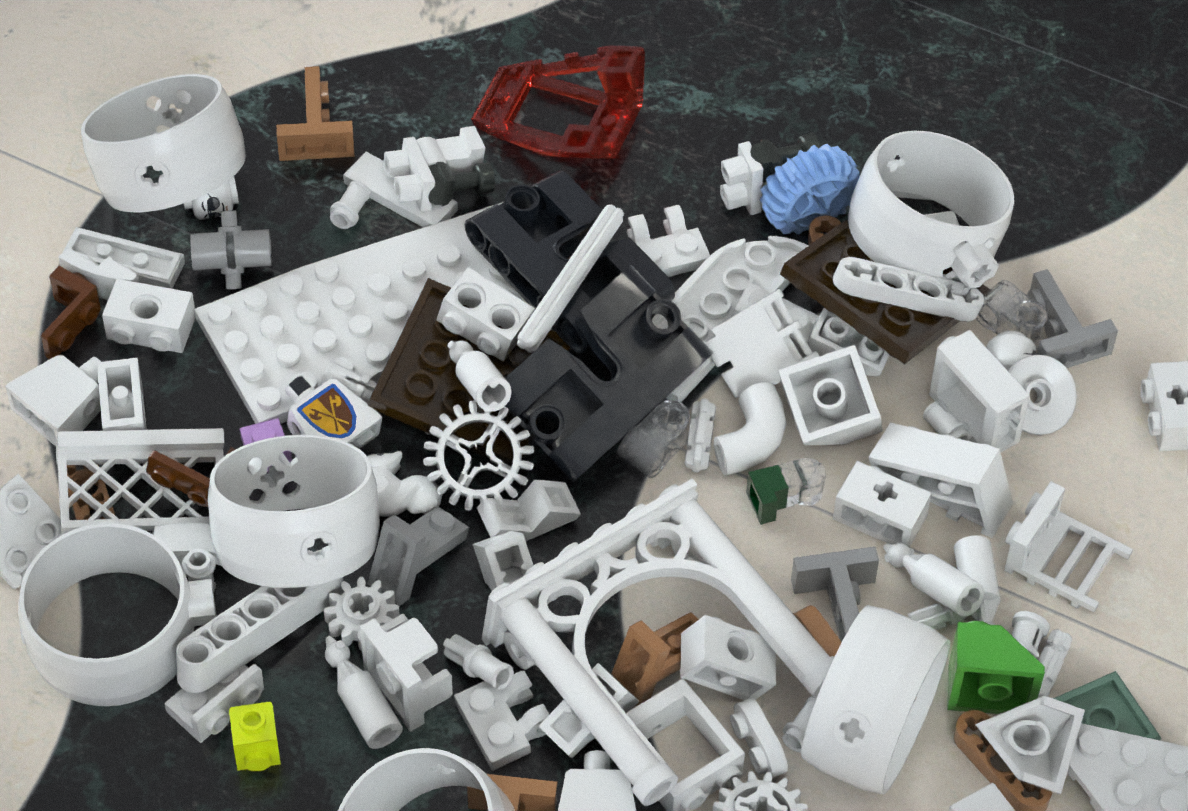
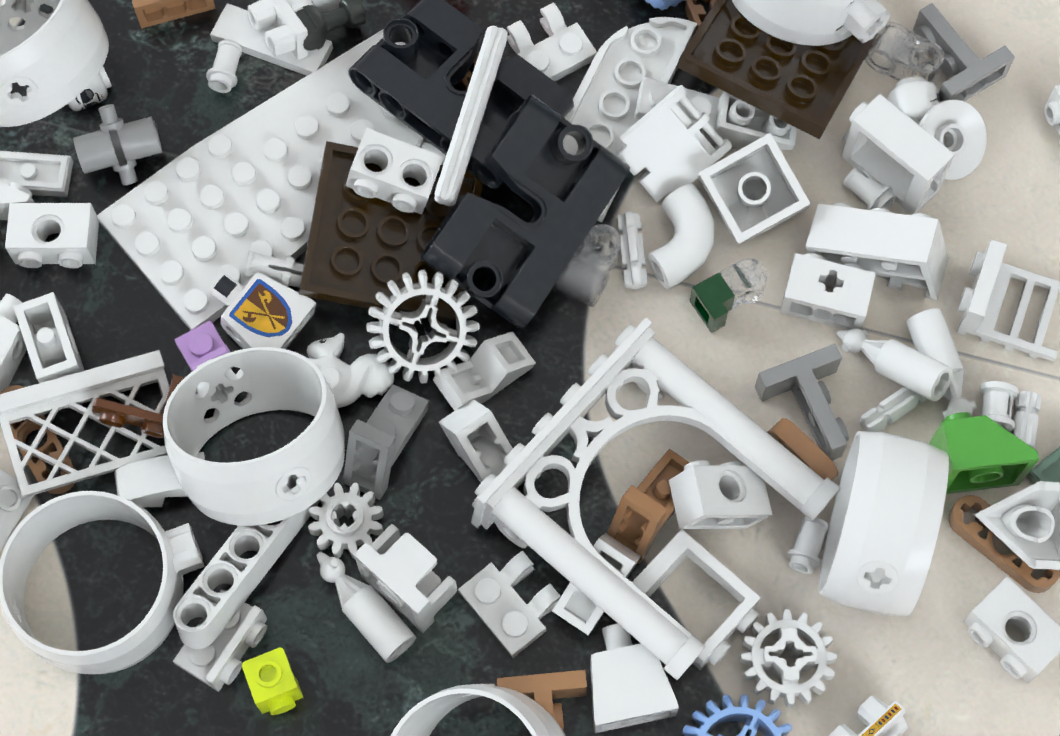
camera: 10 degrees left, 15 degrees up
(199, 565) = (172, 509): white pin -> none
(478, 661) = (474, 549): white axle -> none
(480, 376) = (406, 247): white wheel -> none
(765, 749) = (777, 584): white plate -> none
(867, 280) = (761, 58): white beam -> none

